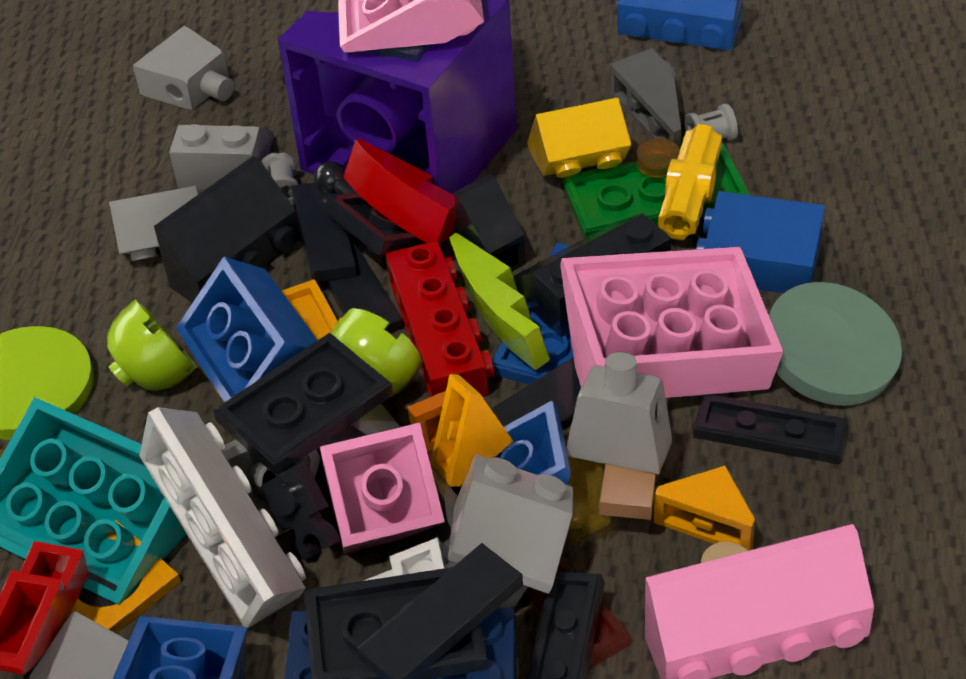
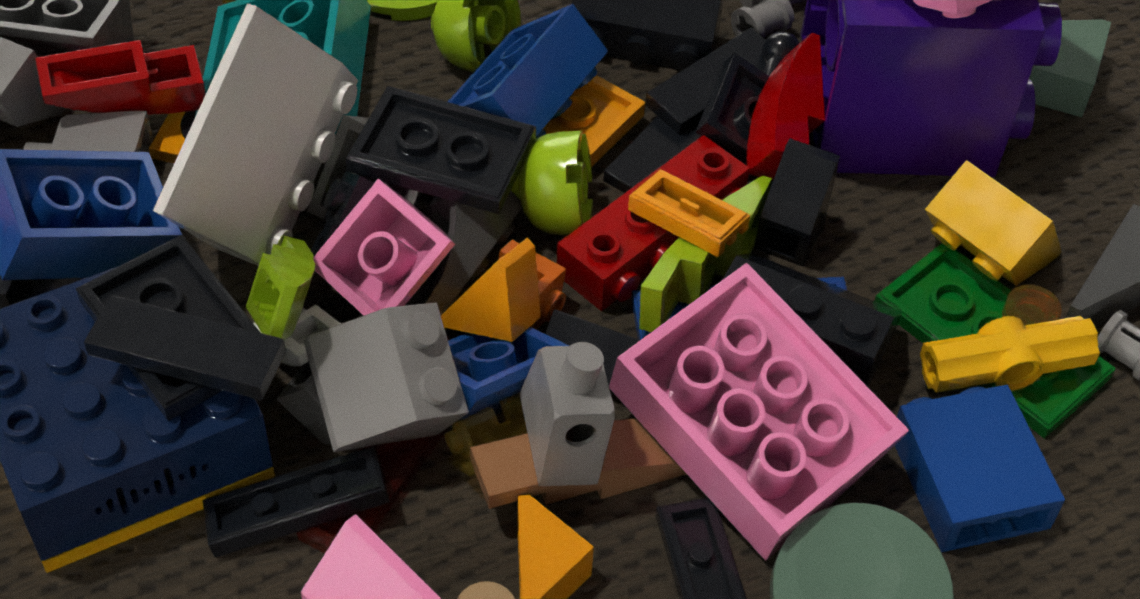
camera: 55 degrees right, 5 degrees up
(386, 550) = (281, 287): none -> lime slope
(469, 283) = (688, 212): none -> light orange tile

